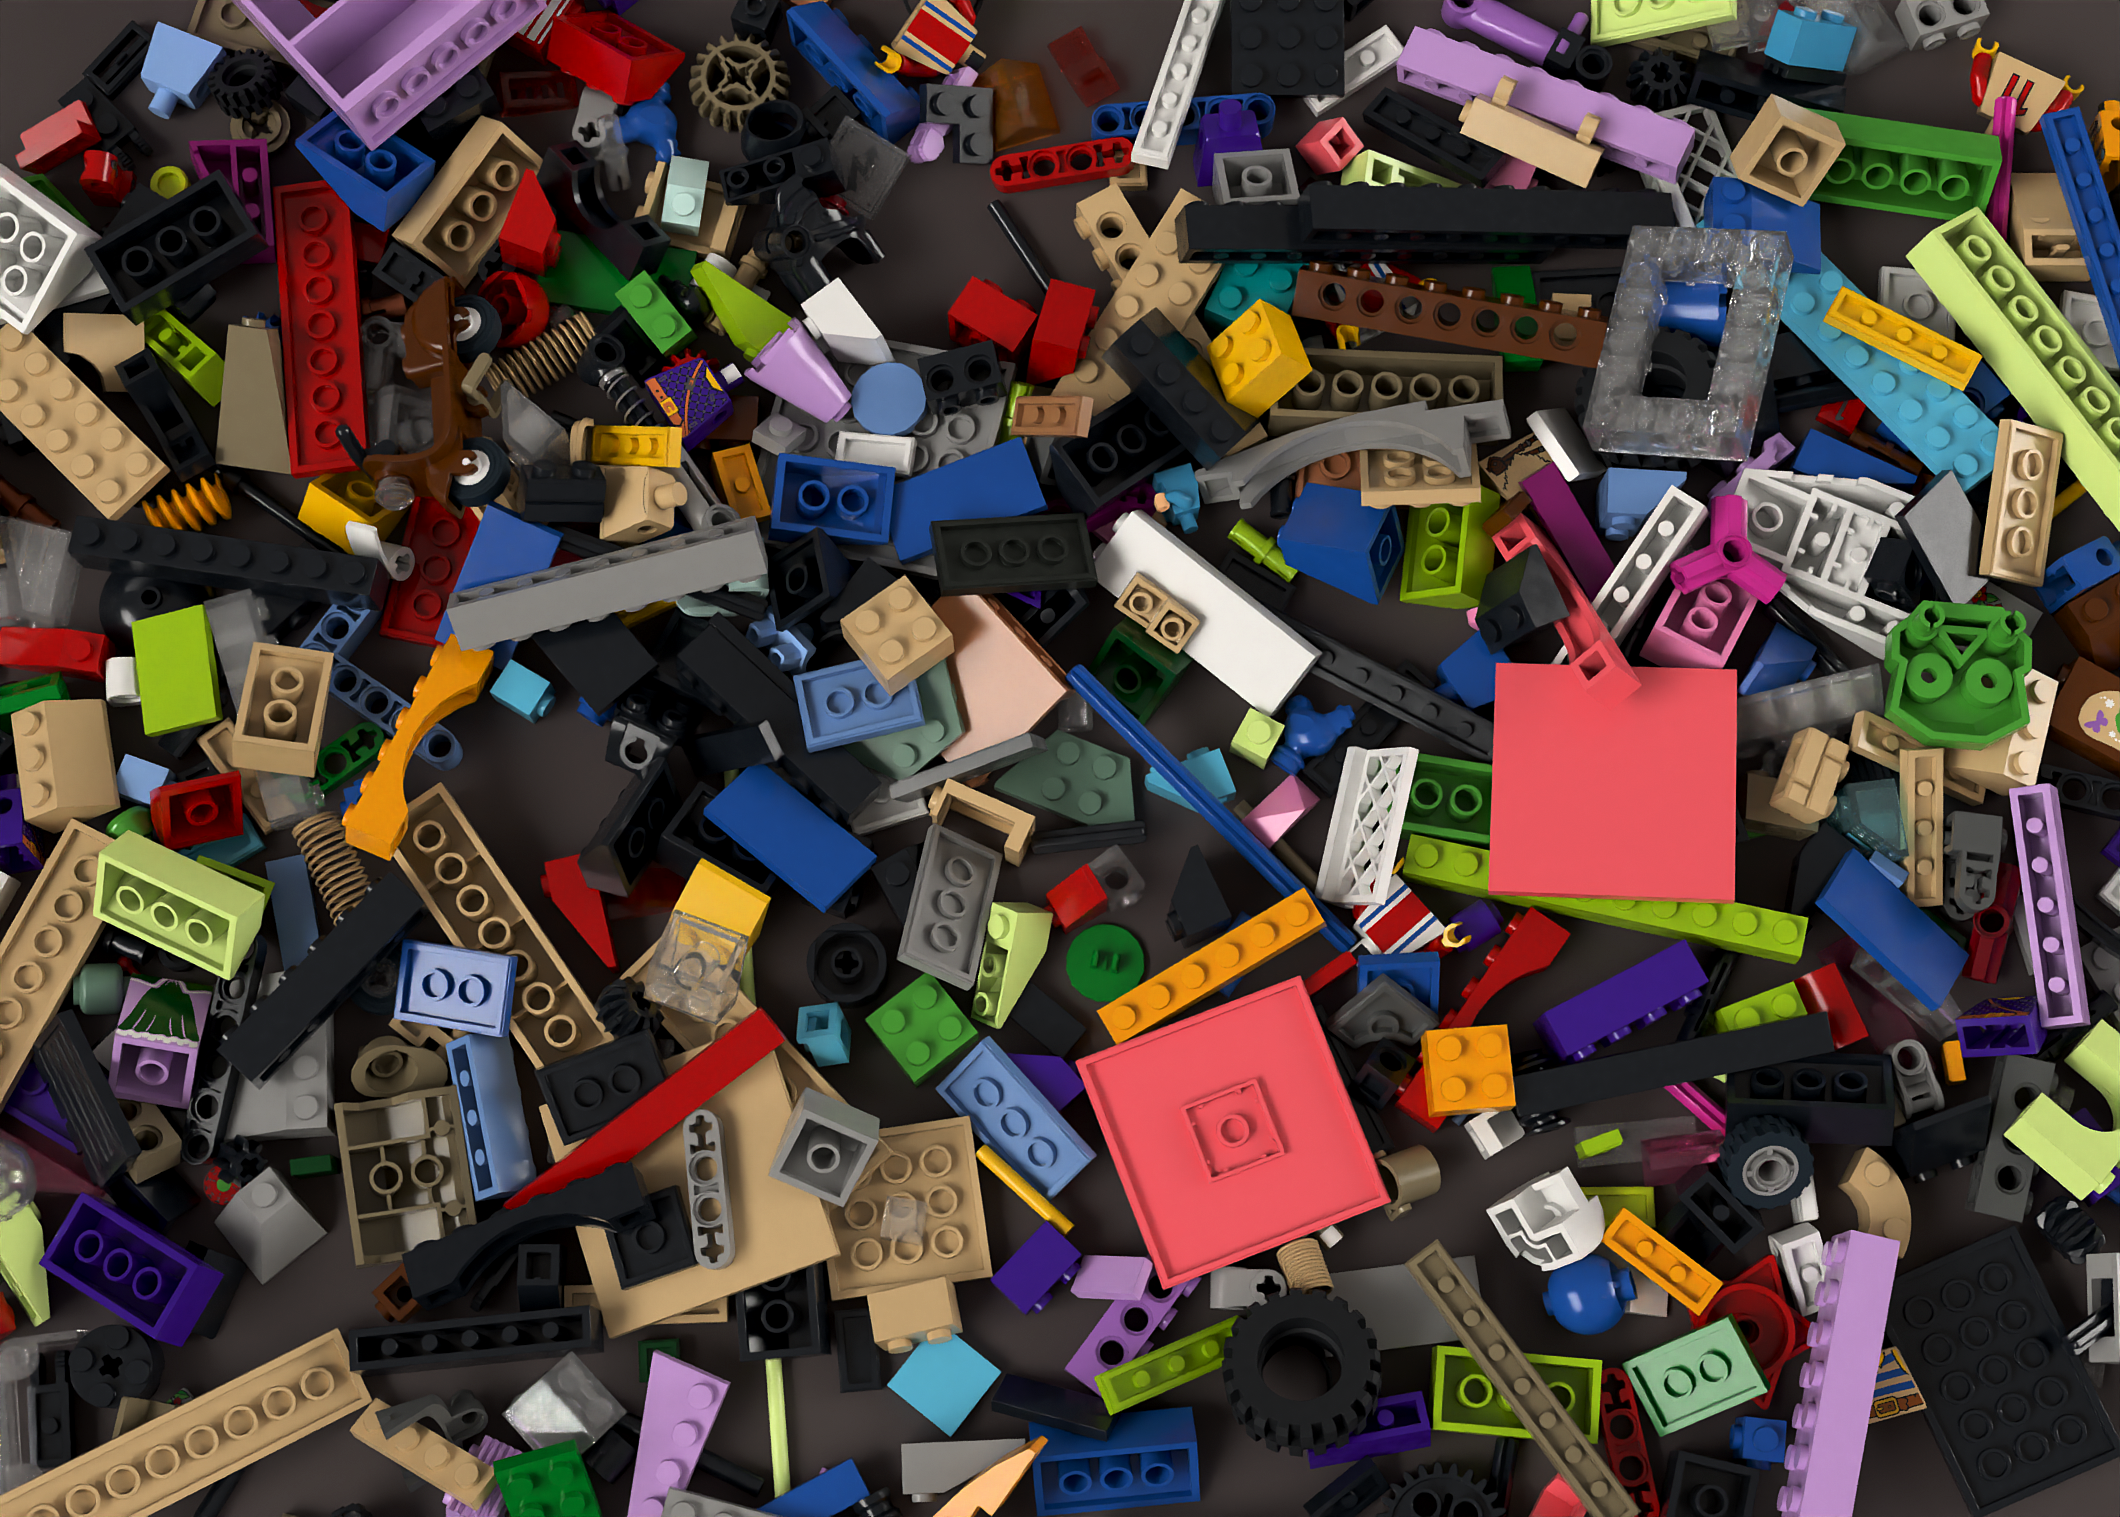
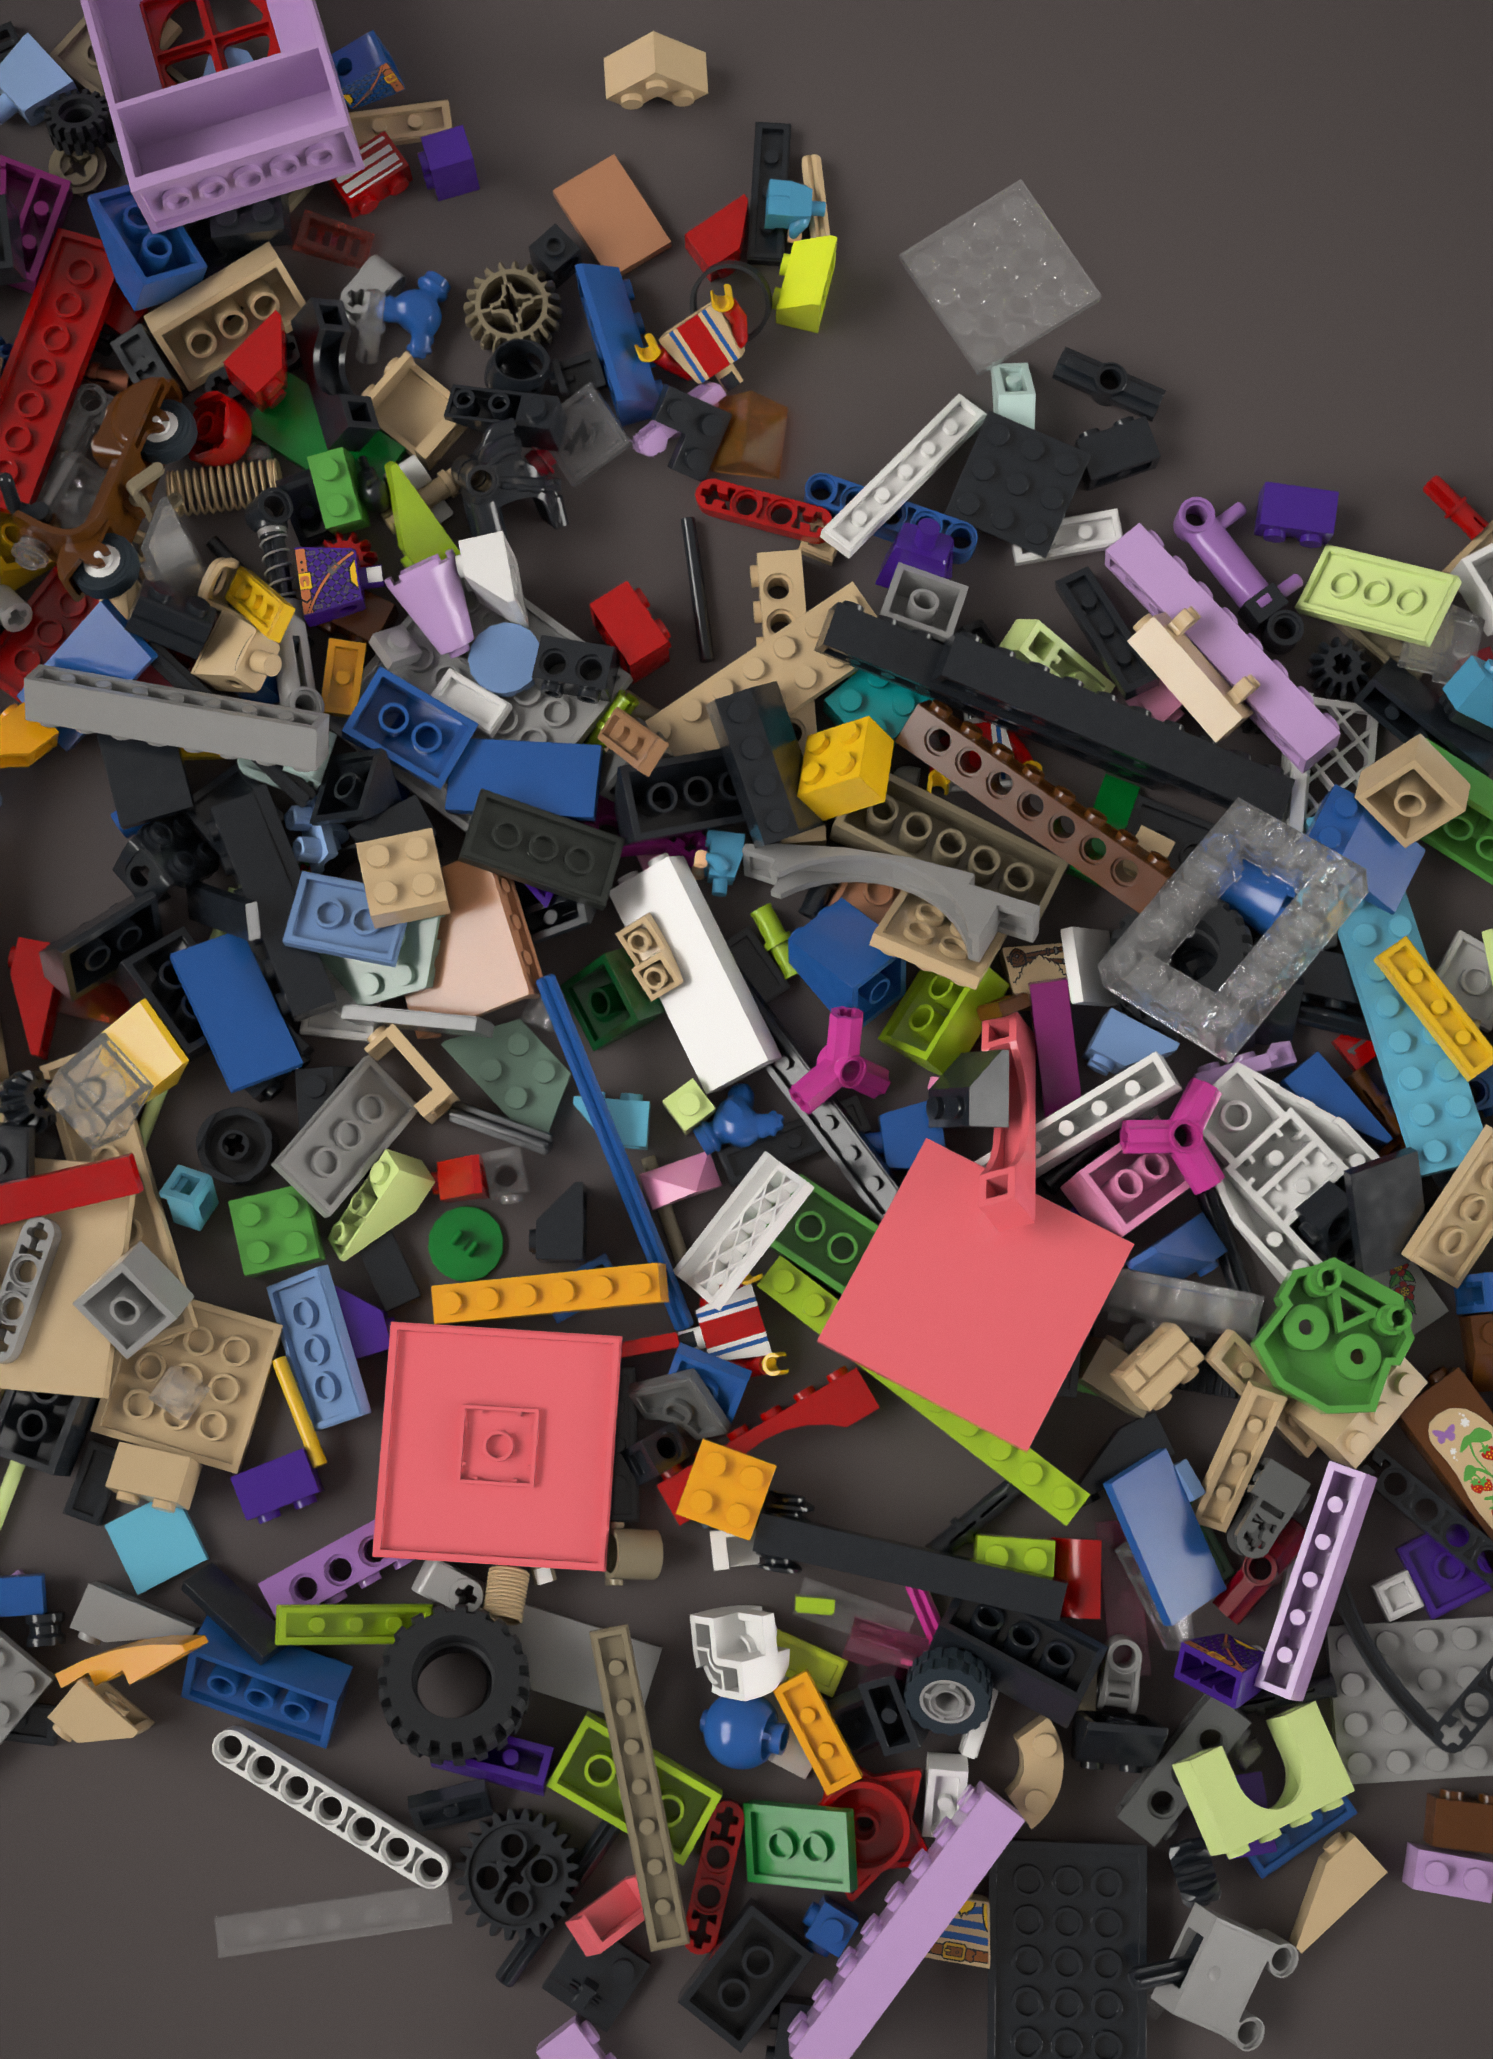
camera: 25 degrees right, 5 degrees up
(524, 692) = (73, 777): medium azure brick -> none
(612, 55) = (410, 236): red slope -> none
(684, 196) = (415, 392): light aqua slope -> none
(1061, 331) = (684, 664): red slope -> none
(1083, 67) = (826, 429): clear red slope -> none
(1112, 1277) = (336, 1524): lavender tile -> none
(1329, 146) = (1009, 599): coral brick -> none
(1382, 632) = (840, 1064): none -> dark pink piece
(1479, 921) = (803, 1359): dark purple brick -> none
(1621, 1001) = (894, 1489): dark purple brick -> none
(1871, 818) = (1195, 1428): clear light blue slope -> none
(1952, 1063) = (1165, 1676): light orange tile -> none

